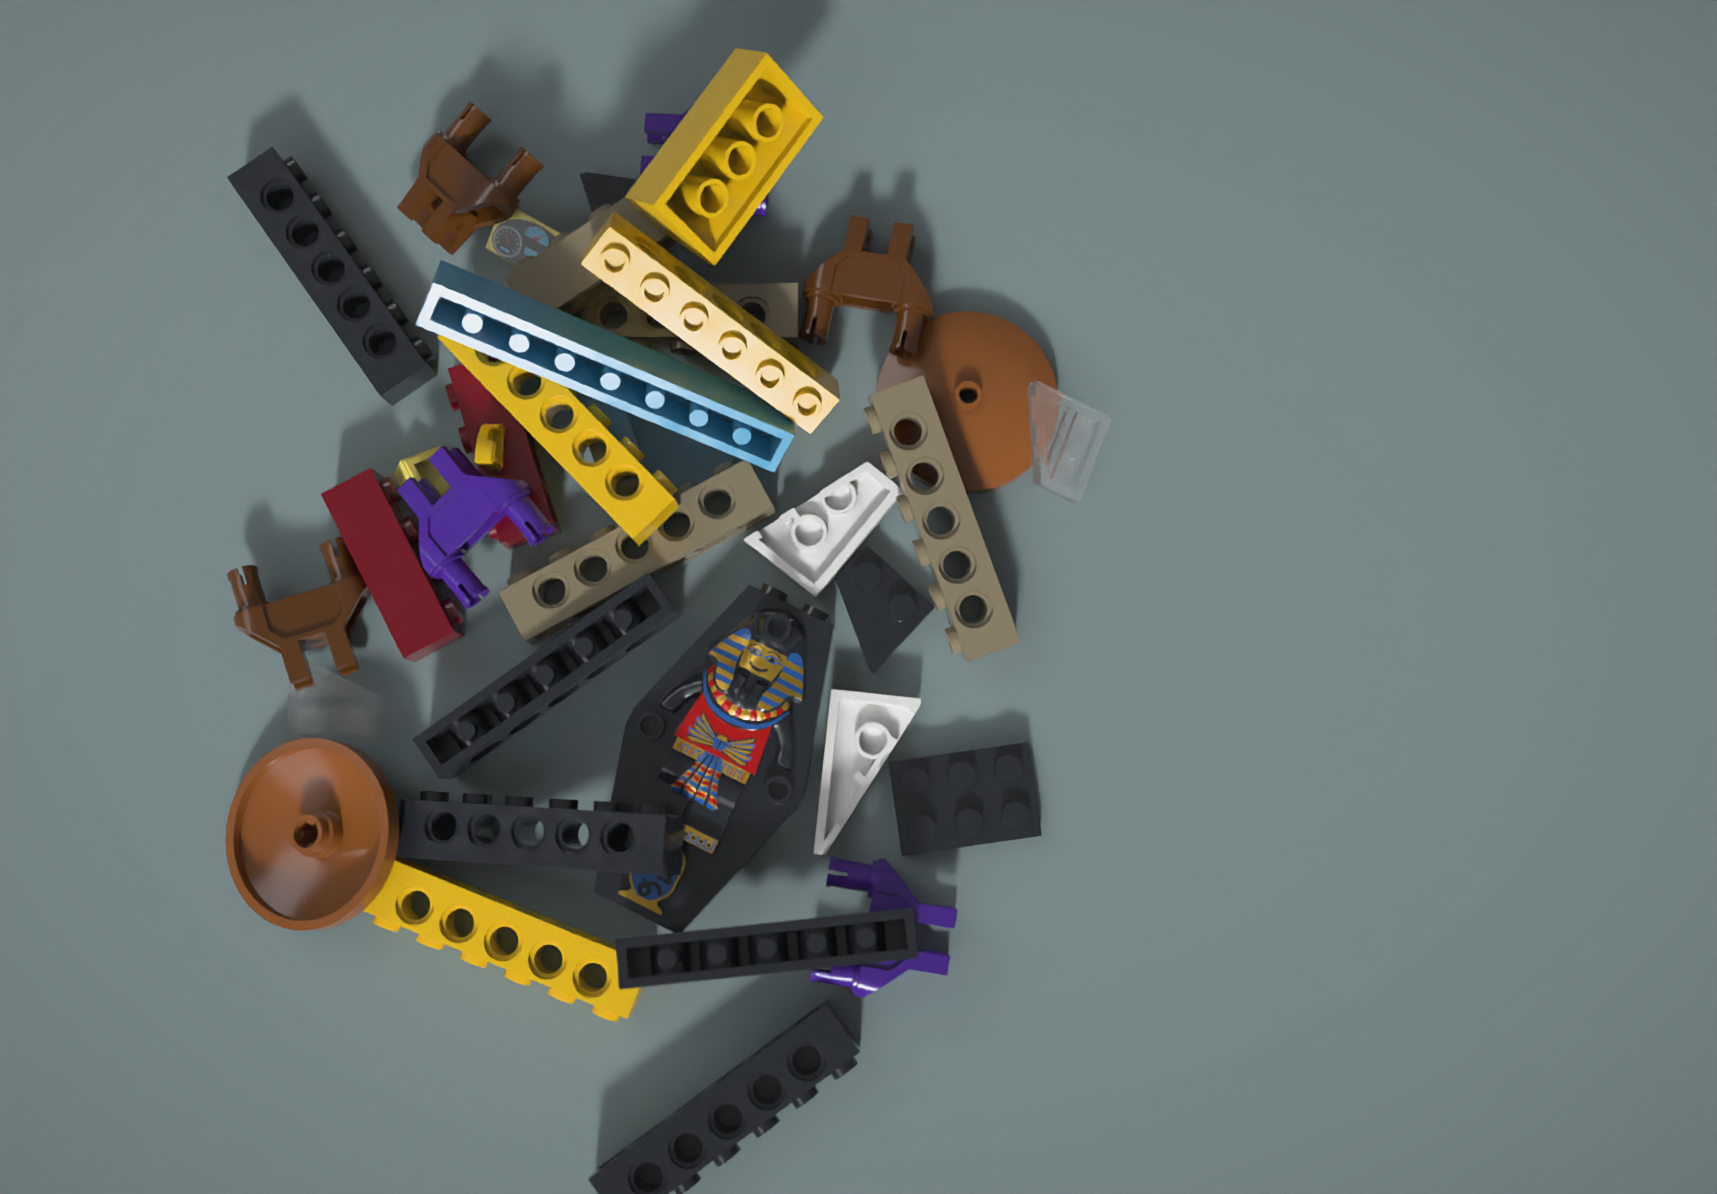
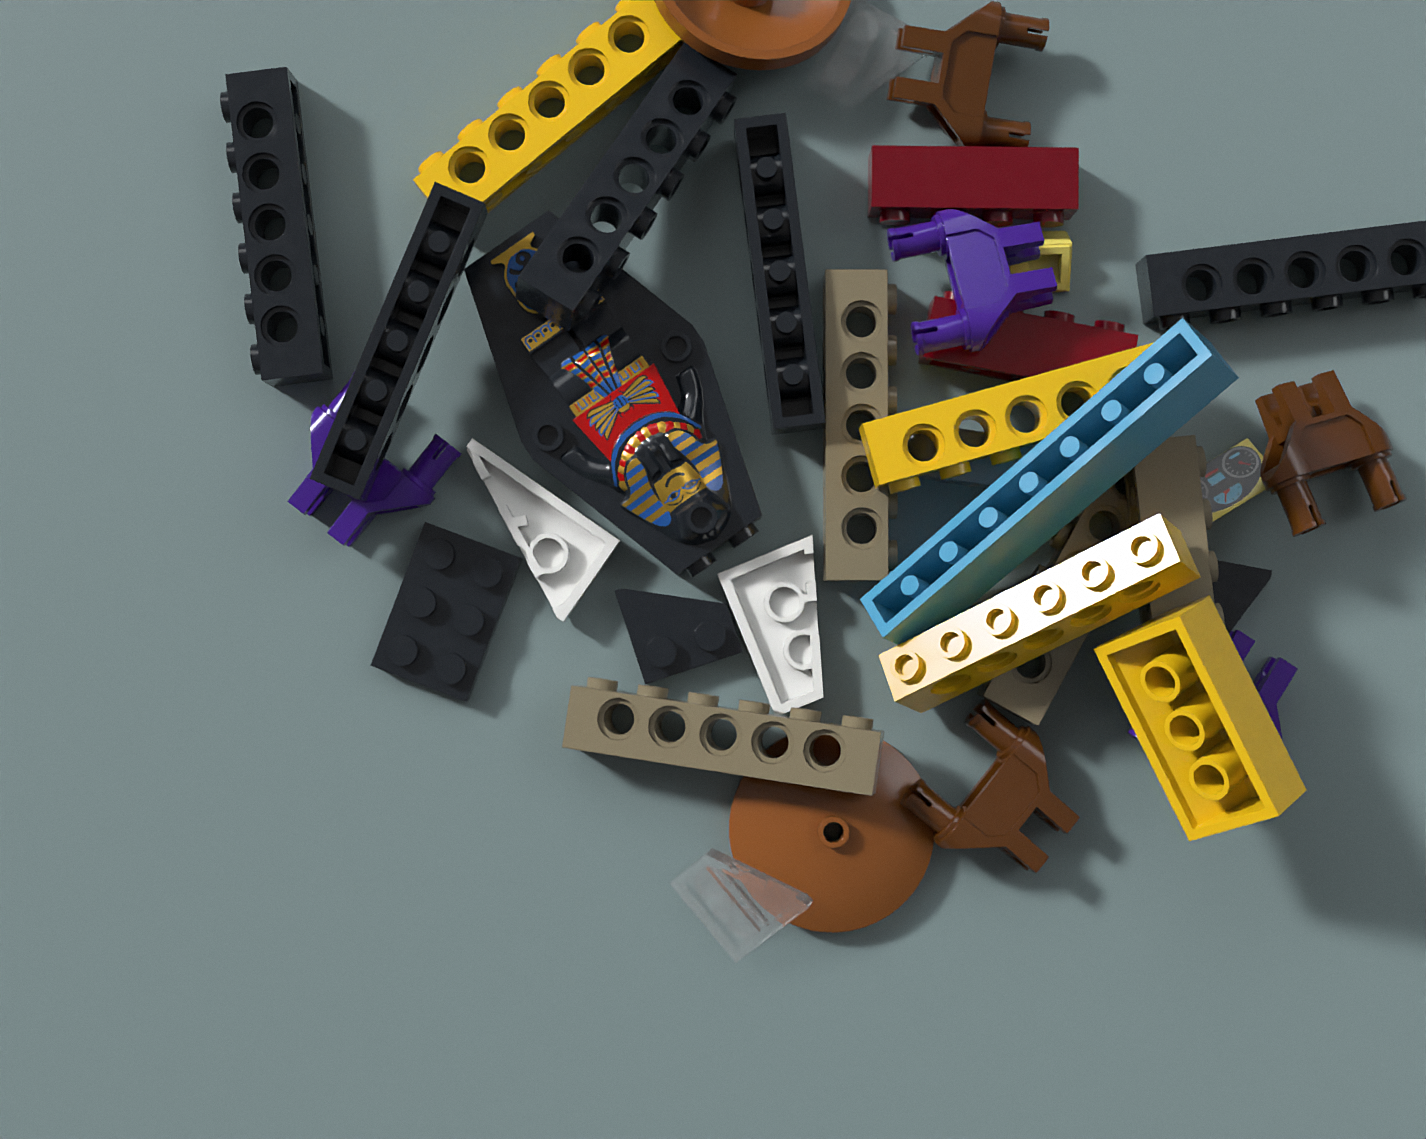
camera: 120 degrees right, 5 degrees up
(490, 447) = (1034, 335): yellow tile -> none

